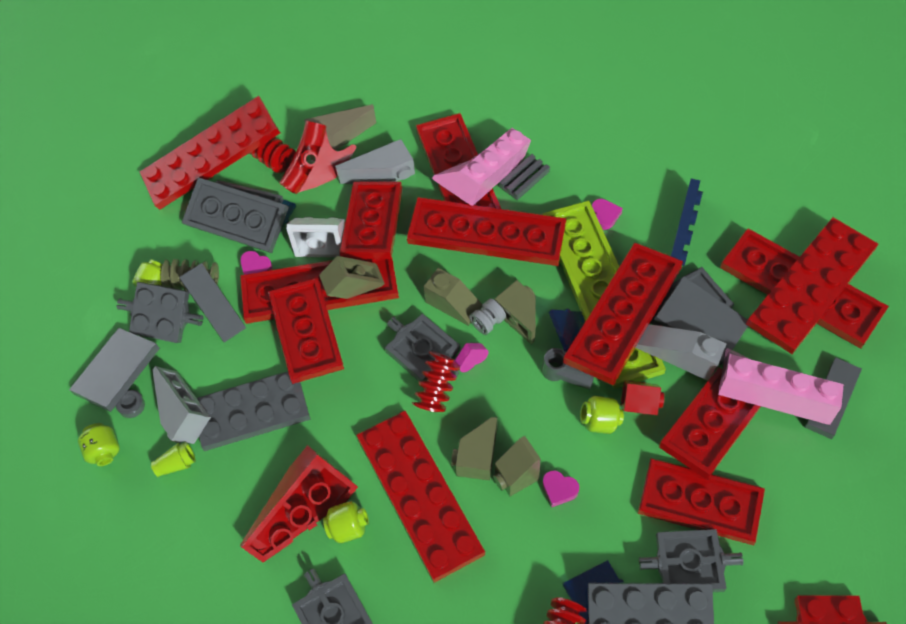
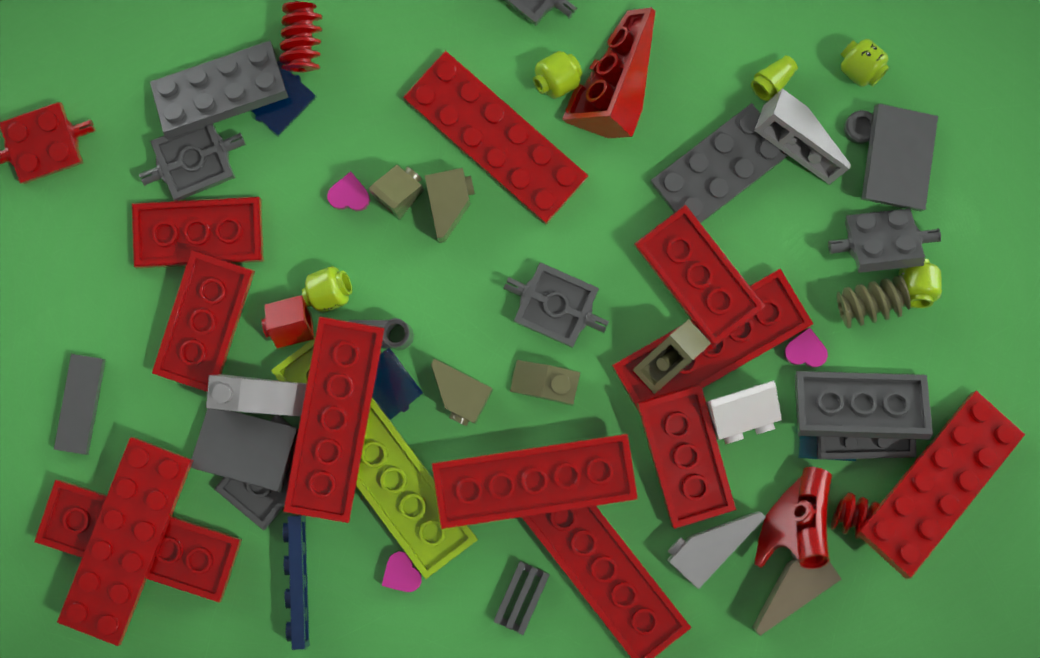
camera: 165 degrees right, 25 degrees up
(212, 302) = (825, 270): dark grey tile -> none
(437, 383) = (520, 258): red piece -> none
(471, 355) = (496, 314): dark pink tile -> none
(483, 172) = (571, 569): bright pink wedge -> none
(488, 316) = (498, 364): light grey wheel -> none
(780, 388) = (157, 384): bright pink wedge -> none

